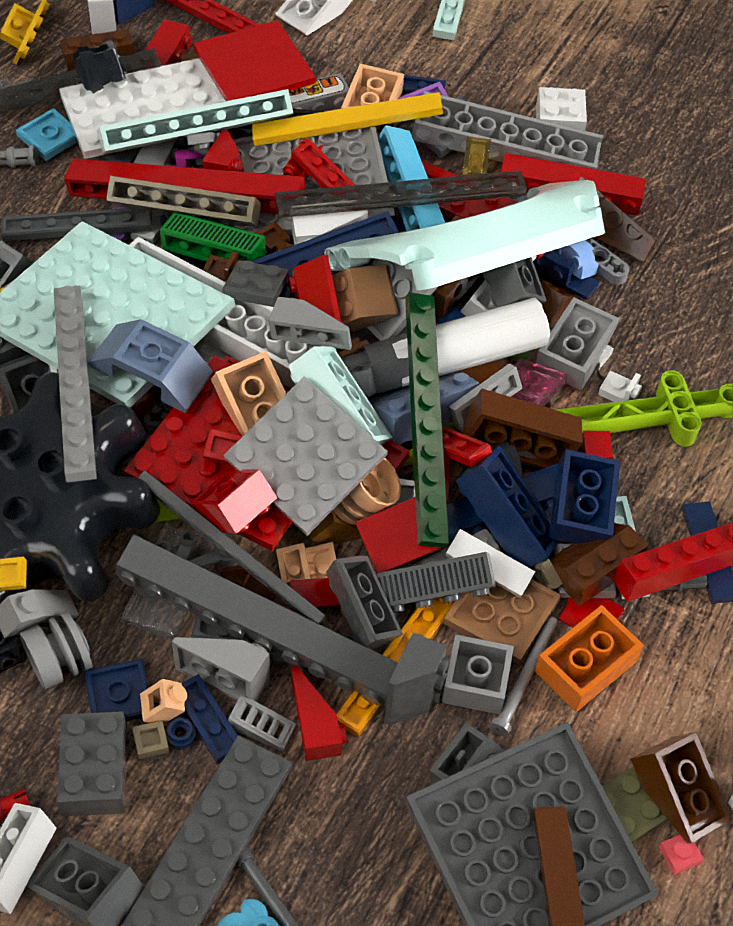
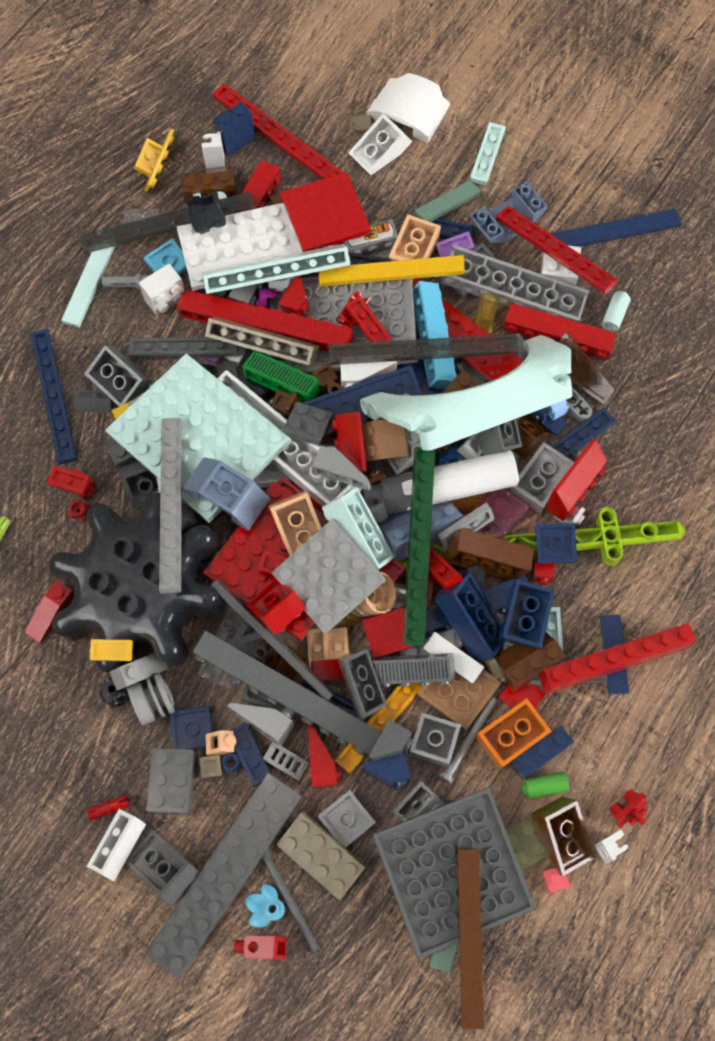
camera: 10 degrees right, 15 degrees up
(43, 159) = (162, 289): none -> white brick
(329, 848) = (321, 855): none -> dark tan plate
(360, 795) = (346, 819): none -> light grey plate
(411, 54) = (448, 202): none -> sand green tile
(416, 719) = (389, 771): none -> dark blue slope
(494, 67) = (523, 200): none -> sand blue slope
(556, 91) = (557, 249): none -> red tile
(609, 413) = (555, 543): none -> dark blue plate
(624, 342) = (577, 481): none -> slope
(628, 291) = (584, 433): none -> dark blue tile
(629, 75) = (620, 229): none -> dark blue tile
(632, 681) = (541, 753): none -> dark blue brick
(640, 157) = (616, 311): none -> light aqua brick
(644, 724) = (545, 785): none -> bright green brick

